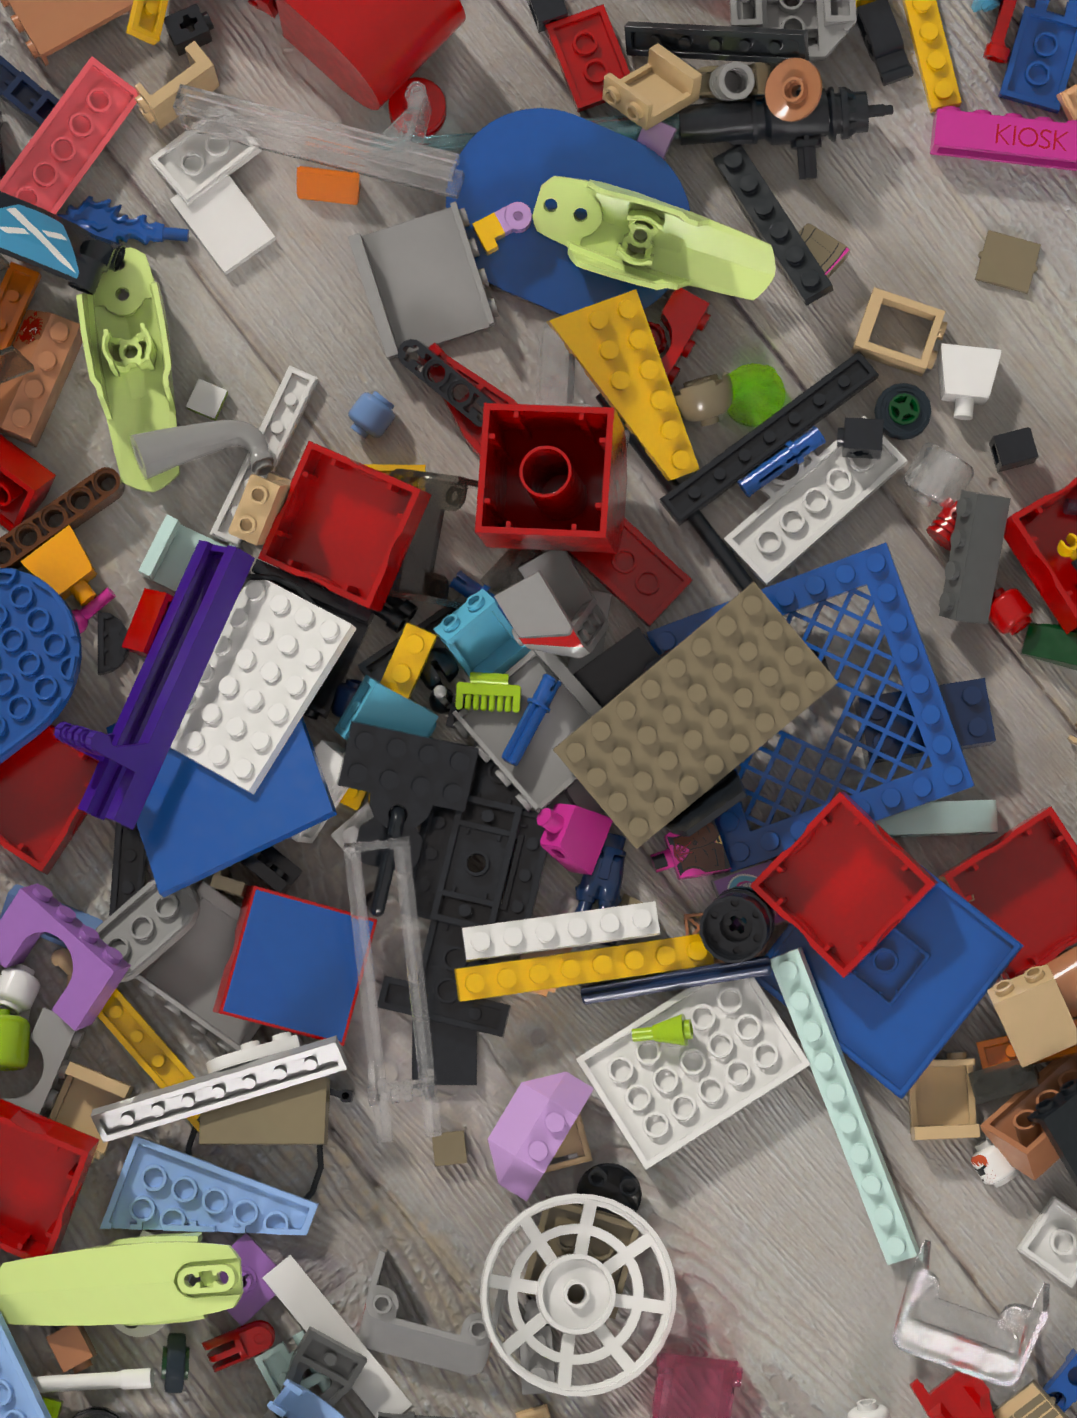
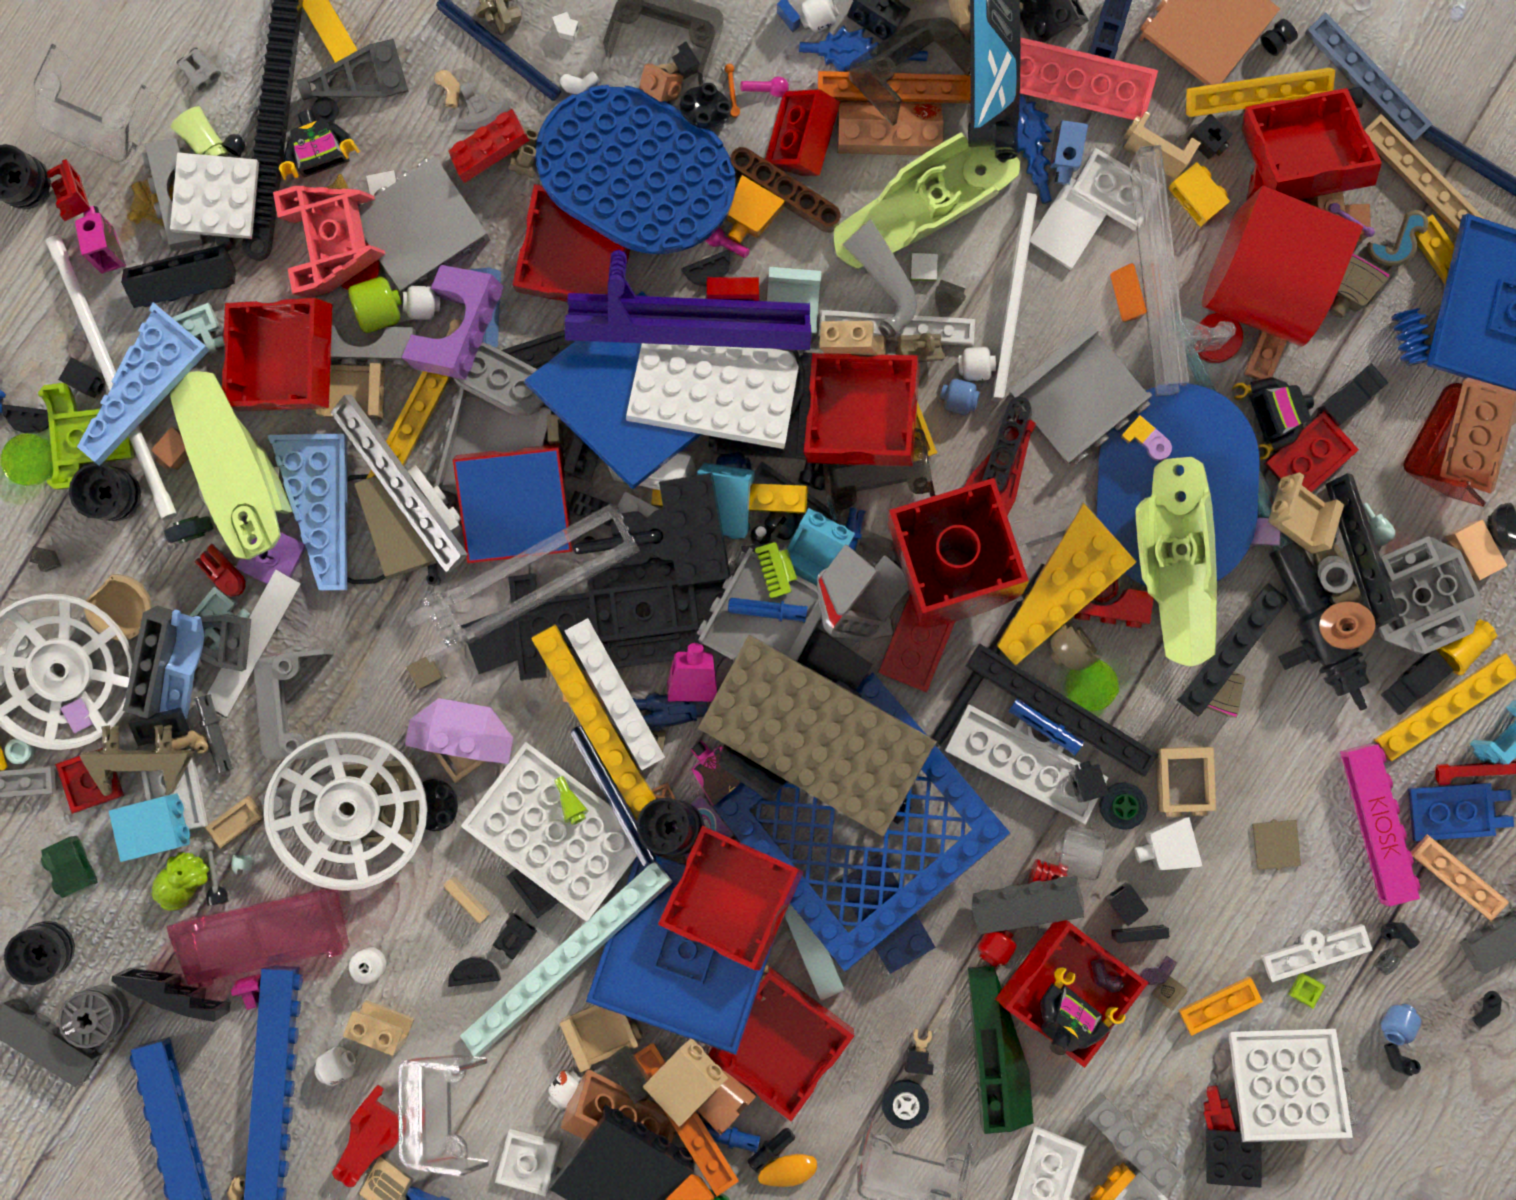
camera: 70 degrees right, 5 degrees up
(131, 180) = (1068, 139): none -> medium blue torso
(248, 65) = (1199, 194): none -> yellow brick
(253, 385) = (948, 298): none -> clear smoke tile
(282, 312) = (1014, 296): none -> white tile
(298, 431) = (926, 346): none -> dark tan hips
(331, 881) = (586, 505): none -> black tyre
(342, 382) = (976, 364): none -> white head
(460, 65) = (1265, 356): none -> nougat plate
(525, 72) = (1279, 411): none -> black torso
(699, 13) = (1381, 528): none -> light aqua piece
(733, 1197) = (466, 900): none -> tan tile
(756, 1335) = (358, 965): none -> white head
(757, 1116) = (534, 896): none -> black plate
(788, 1148) = (518, 927): none -> black piece
(818, 1222) = (473, 971): none -> black tile
(844, 1352) = (379, 1027): none -> tan panel
(1052, 447) = (1140, 933): none -> black tile

